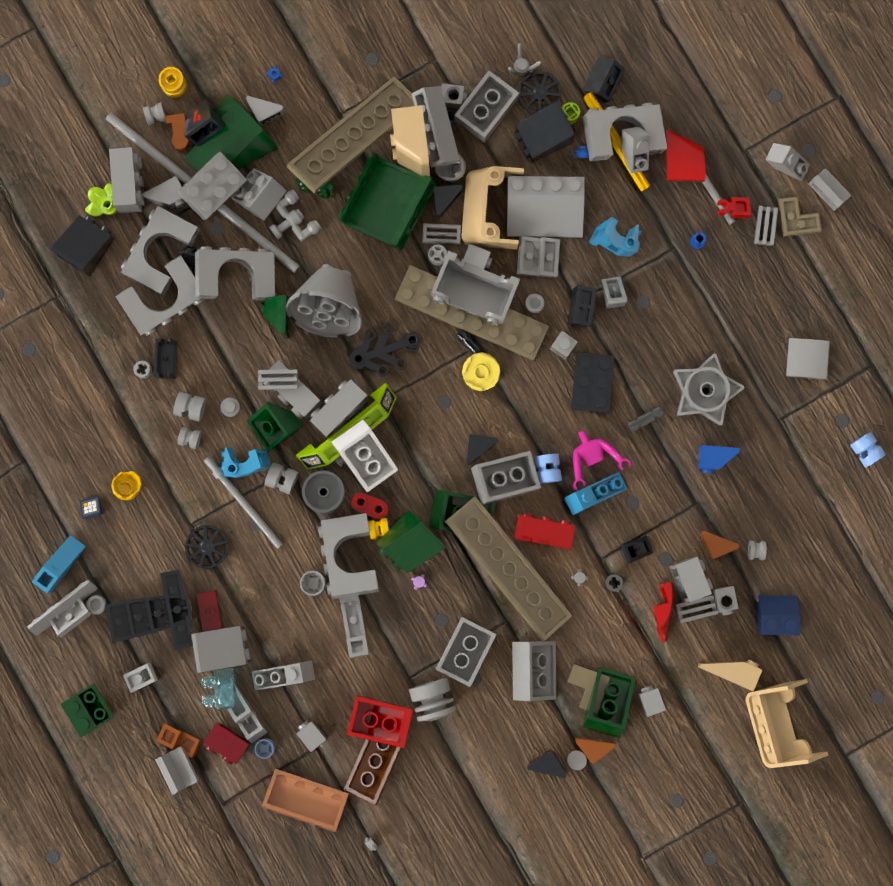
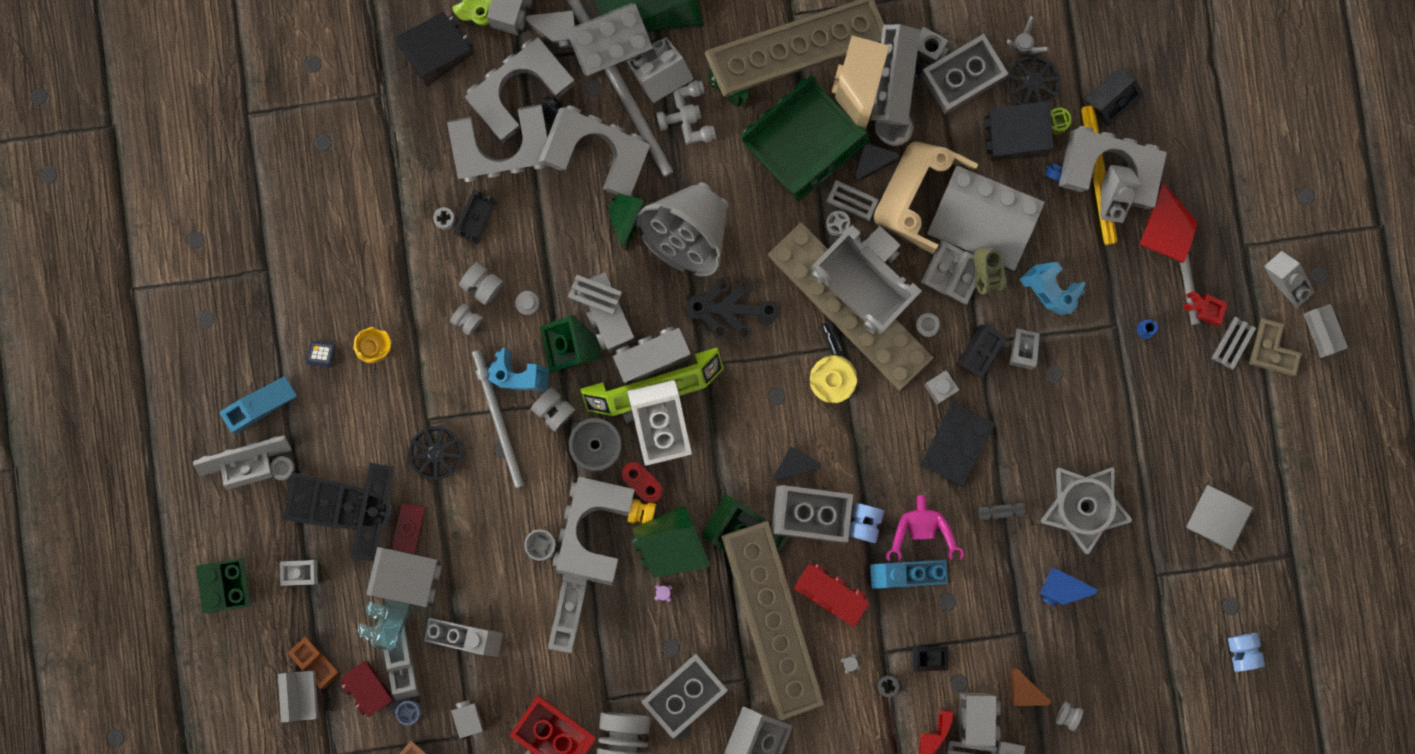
camera: 20 degrees right, 0 degrees up
(565, 245) = (990, 272): none -> olive piece

